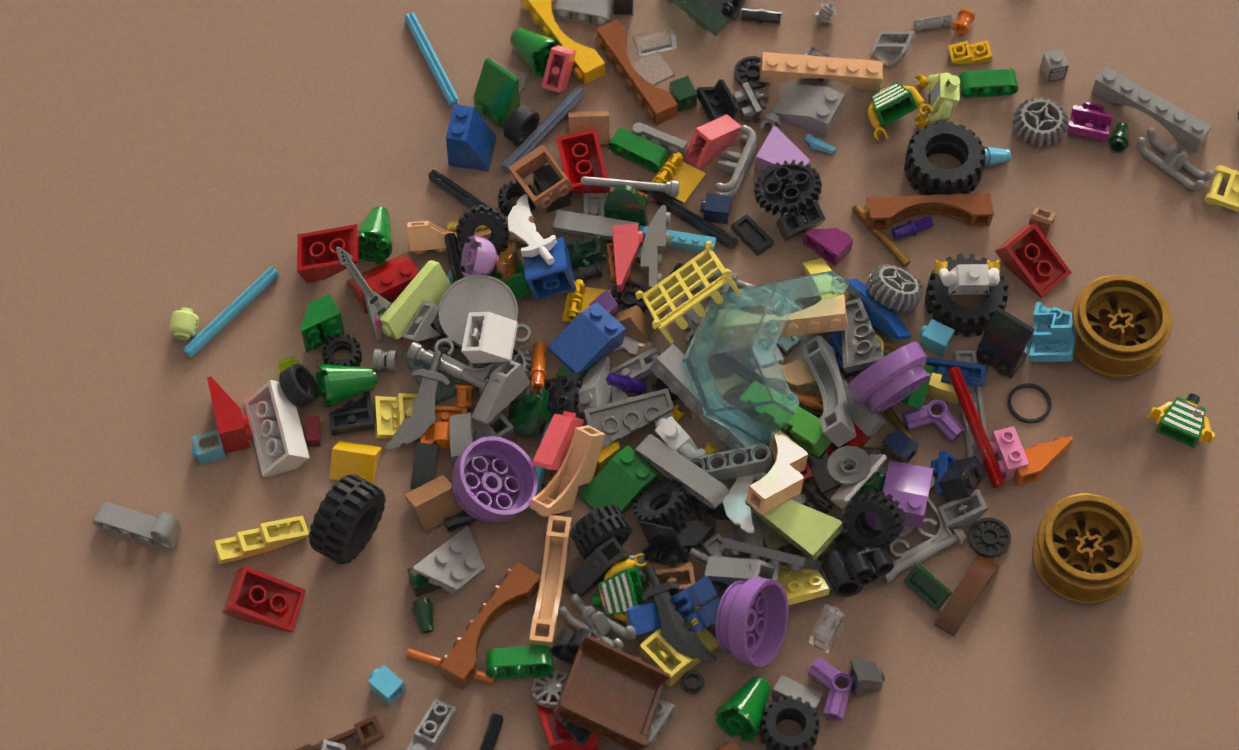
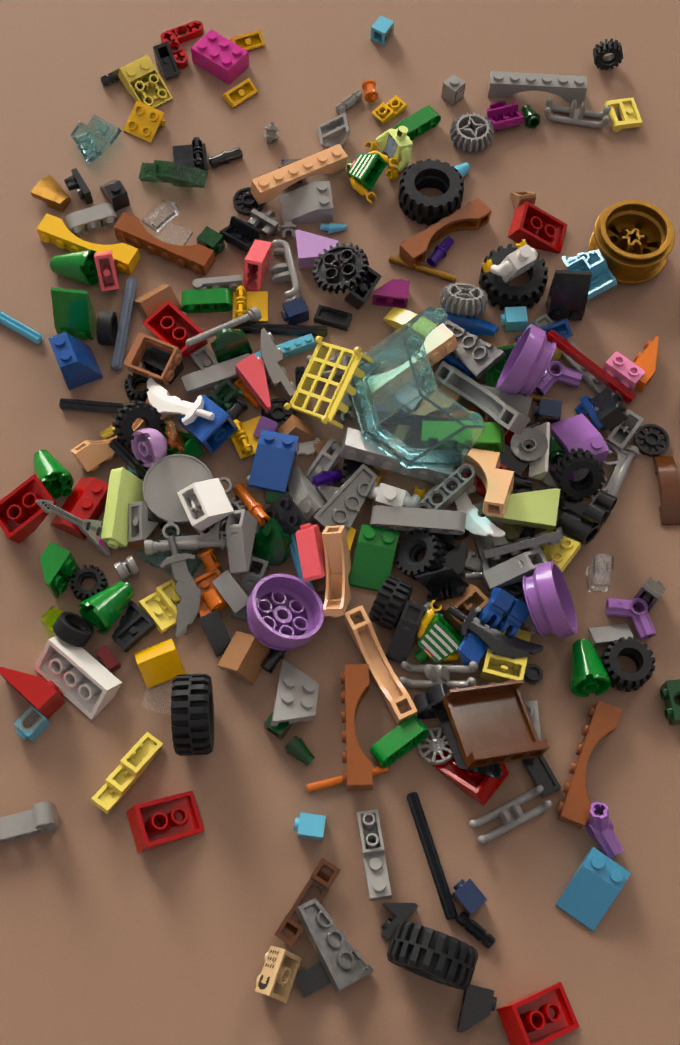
camera: 35 degrees left, 5 degrees up
(927, 586) = (640, 500): dark green plate -> none
(1029, 385) = (603, 343): black piece -> none

